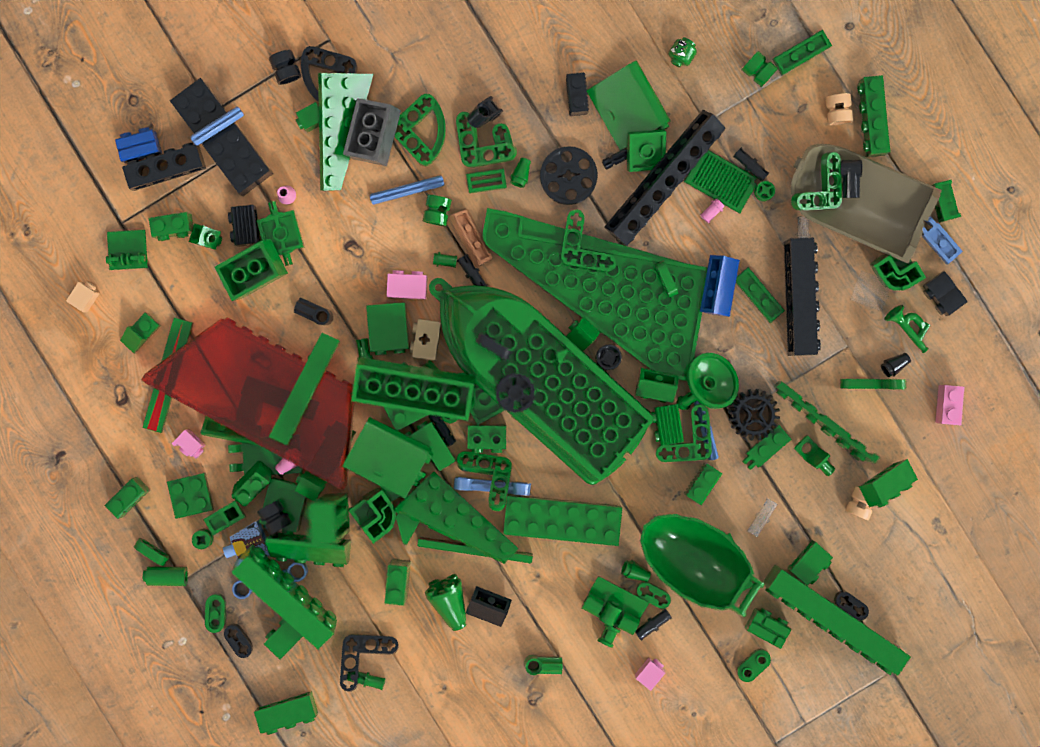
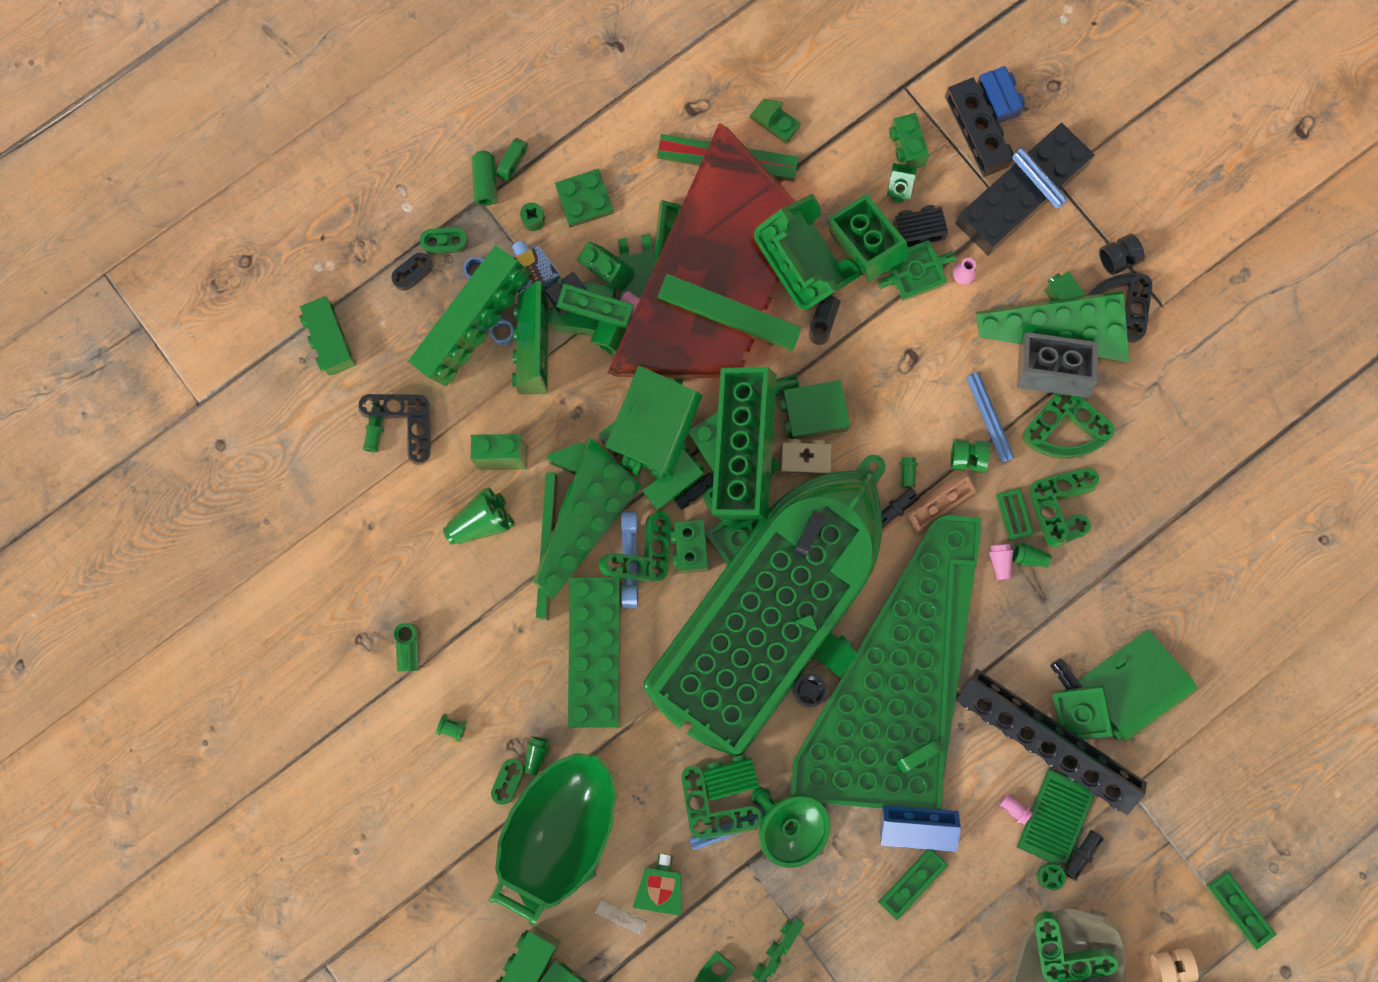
camera: 85 degrees right, 10 degrees down
(83, 296) = (811, 51): light nougat brick -> none
(127, 250) = (873, 95): green hinge -> none
(127, 497) = (575, 124): green brick -> none
(189, 444) = (647, 190): bright pink brick -> none
(224, 517) = (561, 238): green brick -> none
(261, 323) = (802, 255): none -> green windscreen
(282, 639) = (415, 320): green brick -> none
(288, 496) = (595, 305): none -> green tile
(328, 519) = (571, 353): green brick -> none
(374, 514) = (580, 415): green brick -> none
(407, 286) = (870, 428): bright pink brick -> none
(484, 113) = (1101, 501): black piece -> none
(488, 606) = (477, 569): black brick -> none
(515, 393) = (753, 568): black piece -> none
(521, 196) = (1002, 560): none -> bright pink cone
(575, 182) = (1043, 608): black wedge -> none
(575, 247) = (945, 633): green beam -> none
(577, 94) = (1142, 617): black brick -> none
(615, 605) = (490, 732): green panel -> none
(650, 673) = (406, 787): bright pink brick -> none
(653, 624) = (469, 785): black pin -> none
(657, 385) = (780, 757): green brick -> none
(682, 52) = (1217, 748): green head -> none
(703, 483) = (658, 832): green brick -> none
(744, 485) = (660, 888): none -> green torso
(751, 663) = (427, 922): green plate -> none
(759, 69) = (1211, 853): green wheel -> none
(760, 408) = (773, 905): black gear -> none
(766, 447) = (713, 914): green hinge -> none
(768, 628) = (476, 938): green brick -> none
(801, 296) = (919, 939): black brick -> none
(803, 227) = (1008, 934): clear pin -> none

